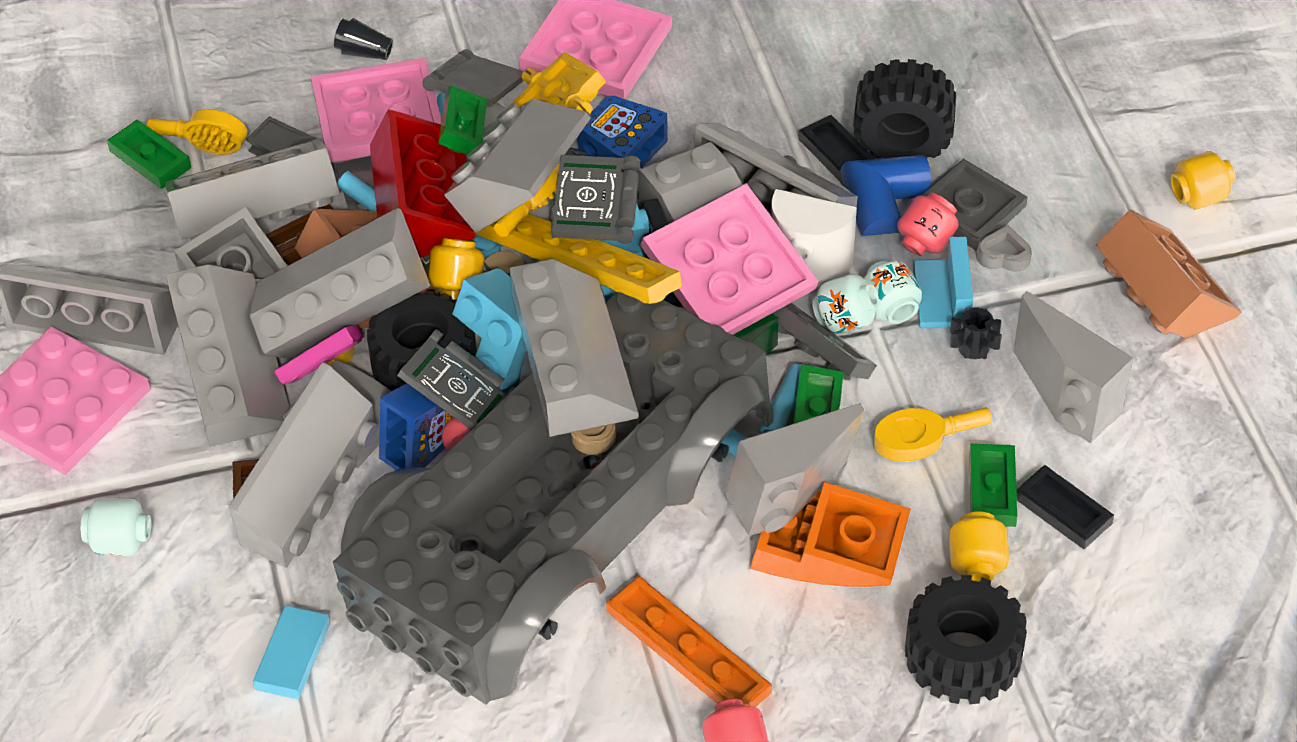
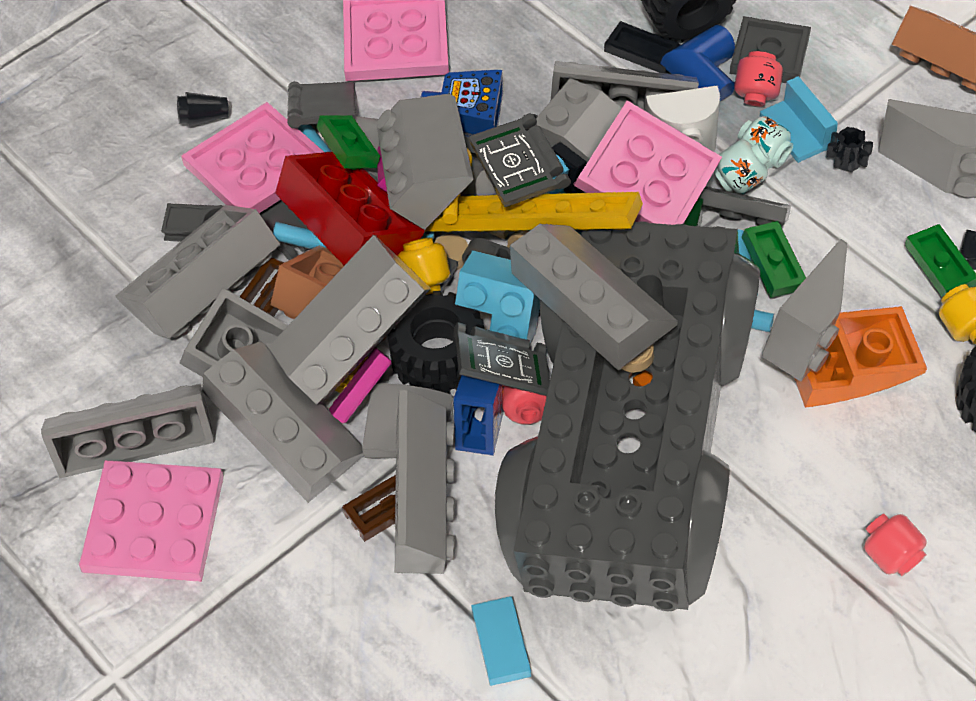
camera: 25 degrees left, 5 degrees up
(115, 526) = (286, 604): light aqua head -> none
(149, 153) = (84, 277): green plate -> none
(206, 130) = (121, 237): yellow piece -> none
(562, 83) = (400, 78): yellow plate -> none
(686, 645) = (805, 490): orange tile -> none
(920, 432) = (865, 240): yellow piece -> none
(1005, 250) = (822, 75): light grey tile -> none

